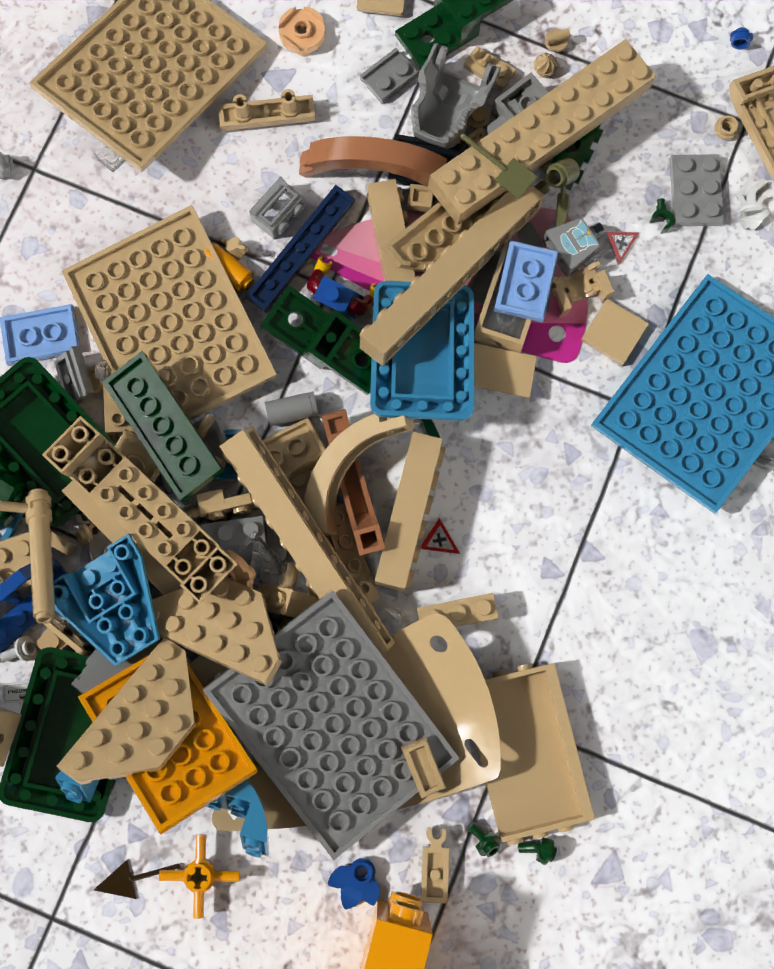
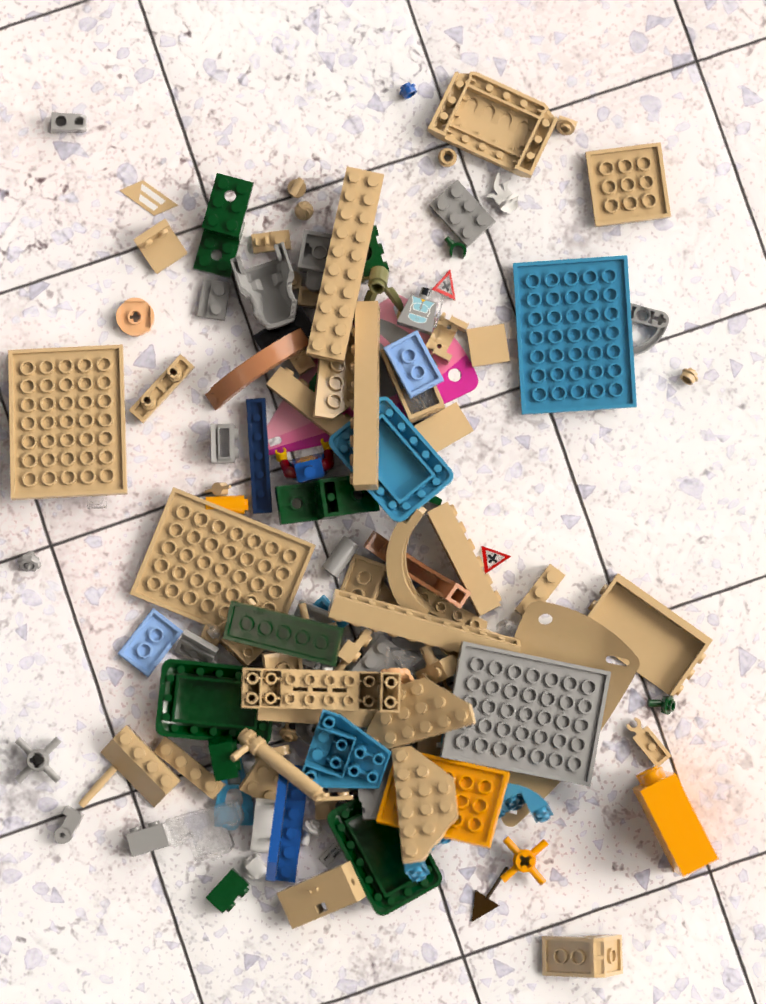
camera: 45 degrees left, 5 degrees up
(354, 886) = (614, 792): blue plate -> none
(423, 767) = (595, 693): tan tile -> none
(514, 176) = (357, 312): olive piece -> none
(545, 850) = (700, 680): dark green plate -> none

